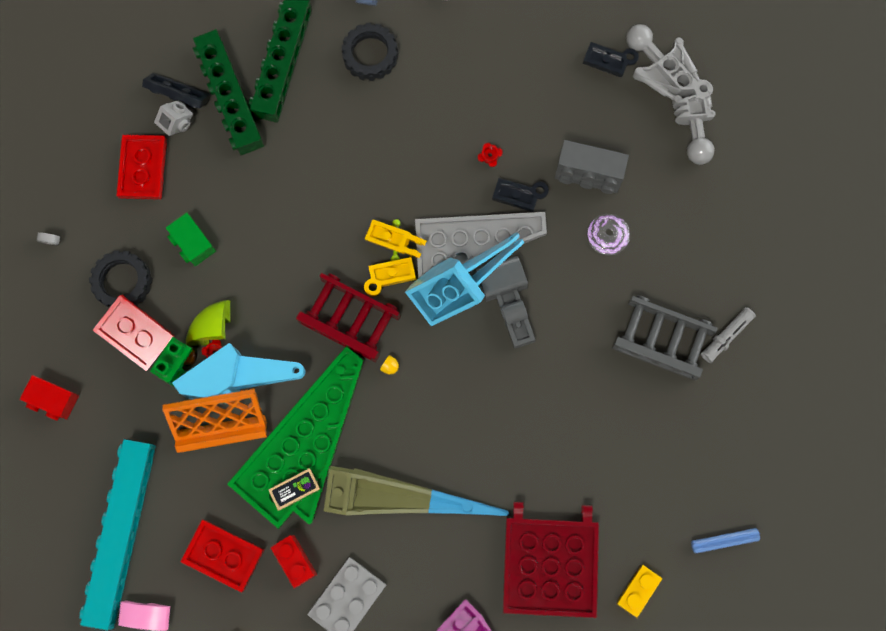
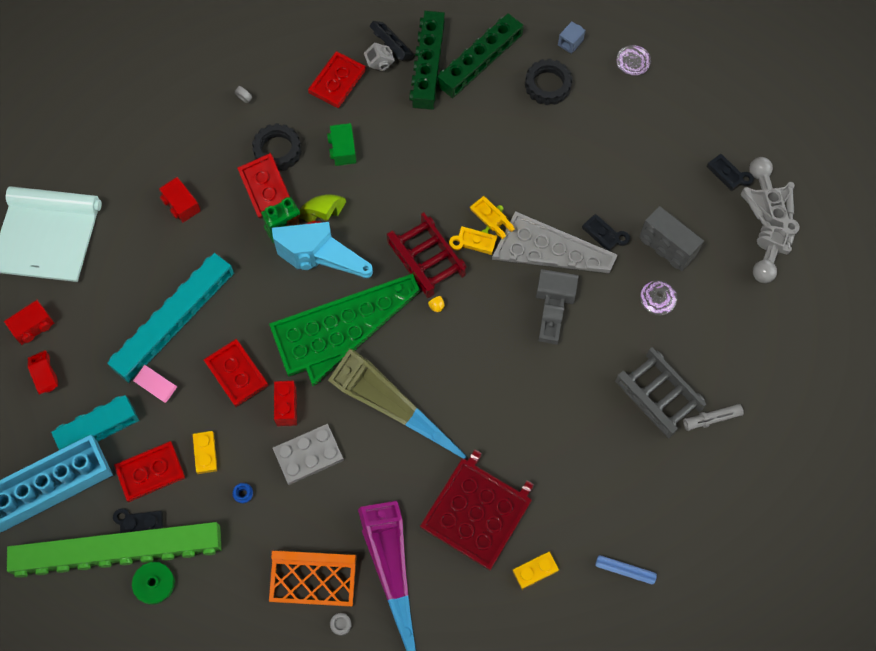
camera: 25 degrees right, 10 degrees down
(217, 432) = (285, 285): orange fence -> none
(294, 489) = (315, 352): tile -> none
(450, 288) = (515, 268): medium azure slope -> none
(490, 149) = (598, 191): red plate -> none

